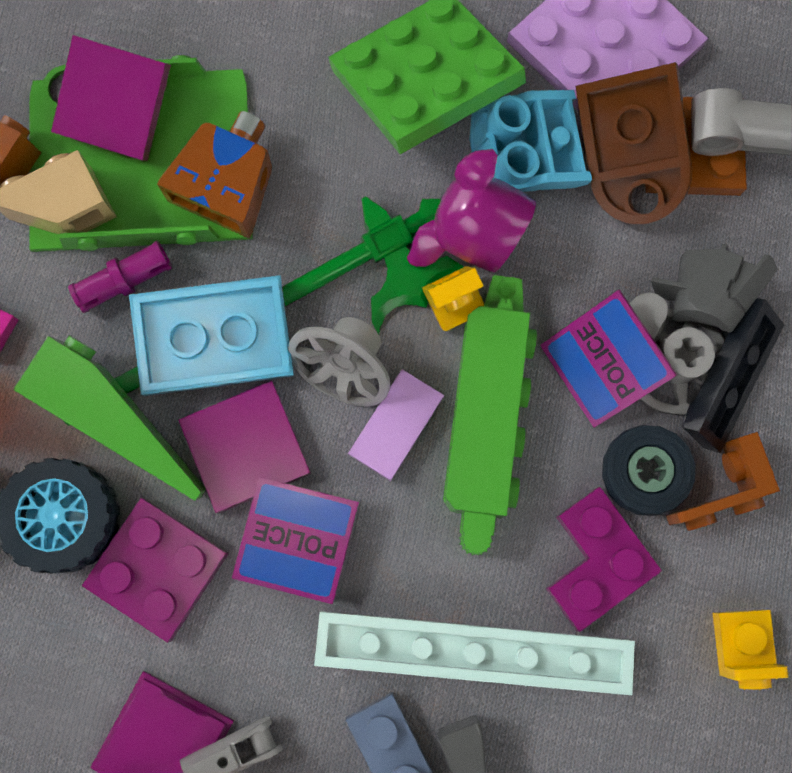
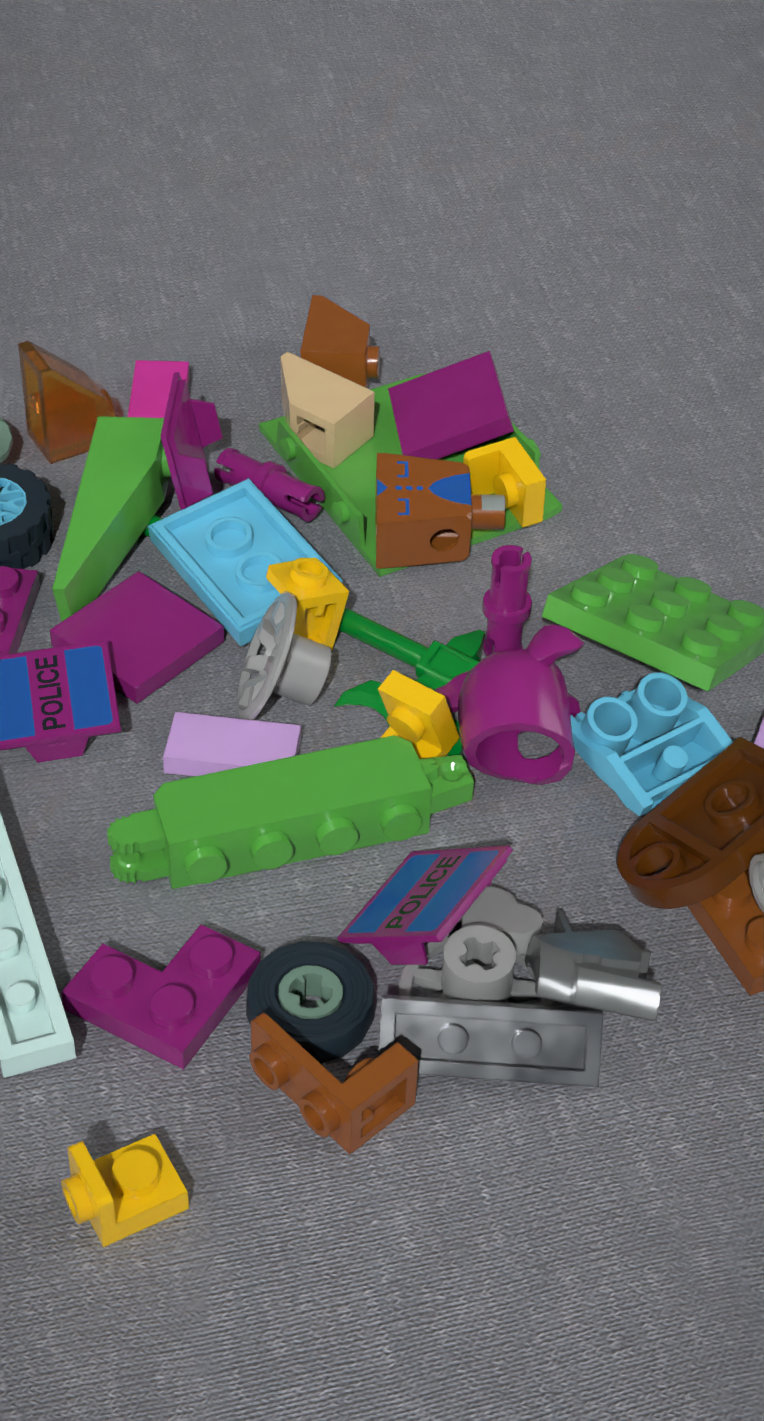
camera: 65 degrees right, 35 degrees down
(42, 313) = (184, 433): none -> magenta piece
(221, 91) = (510, 472): none -> yellow bracket
(289, 308) = (317, 594): none -> yellow bracket
(370, 168) = (507, 600): none -> magenta pin

